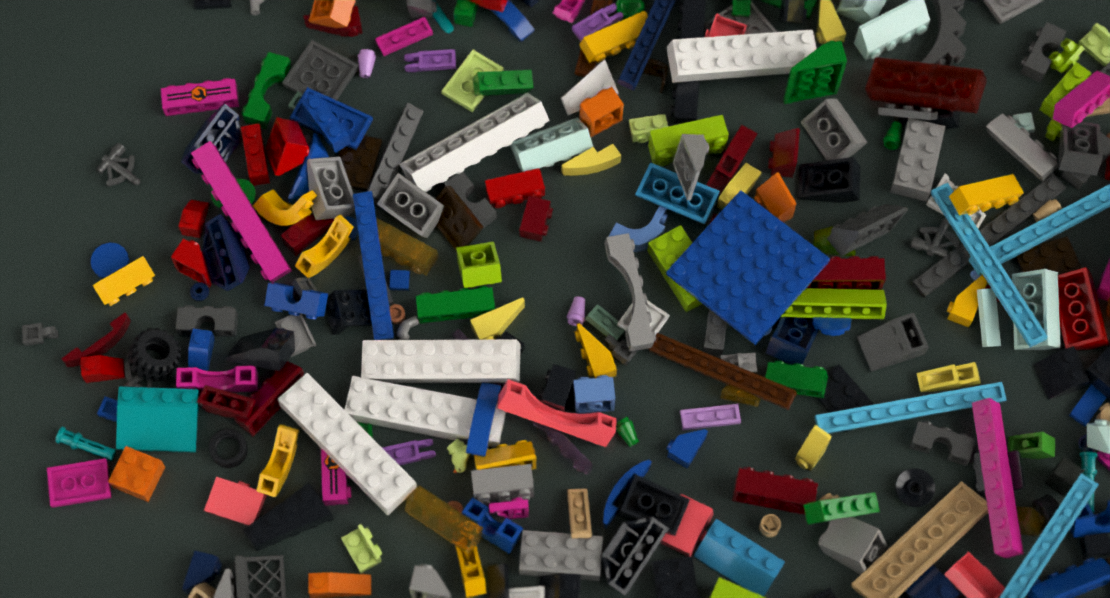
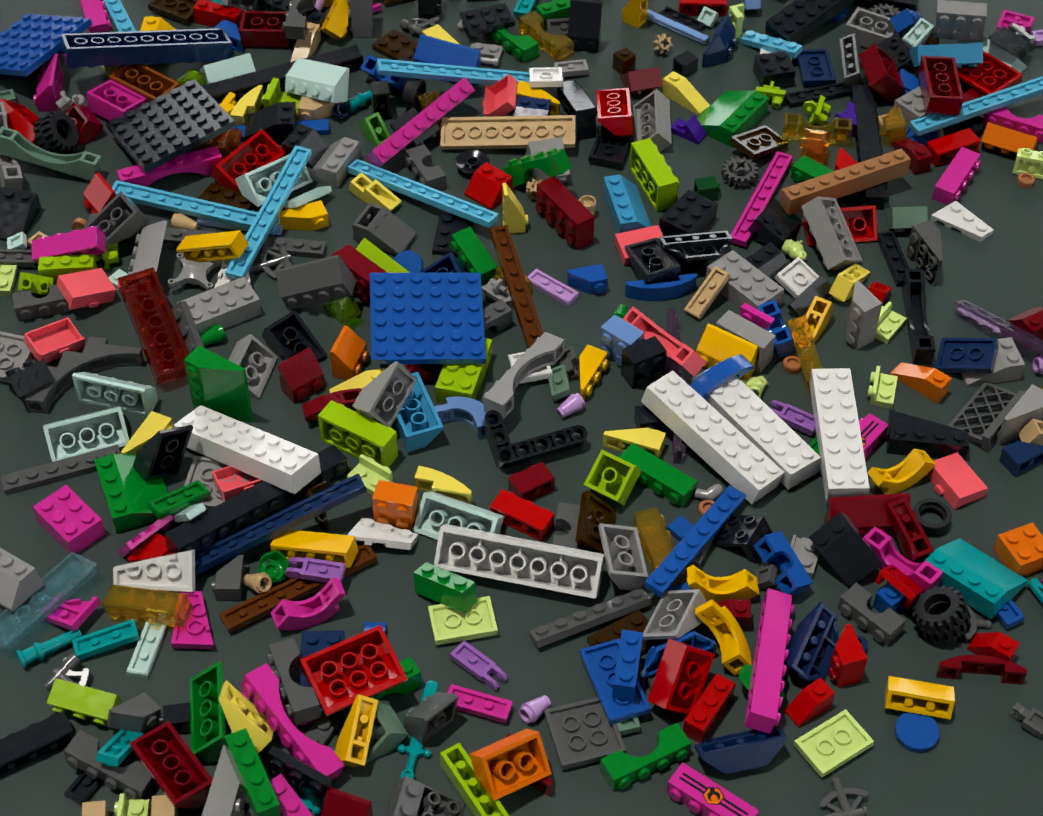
camera: 135 degrees left, 20 degrees down
(156, 203) = (833, 743): none -> yellowish green plate
(210, 337) = (901, 582): none -> red piece
(563, 243) = (529, 445): none -> black beam
(871, 473) = (487, 185): none -> red slope
(976, 169) = (193, 273): none -> light grey piece
(986, 27) = (54, 339): none -> coral container
(1019, 381) = (333, 164): none -> light grey slope
(1025, 82) = (86, 288): none -> coral container

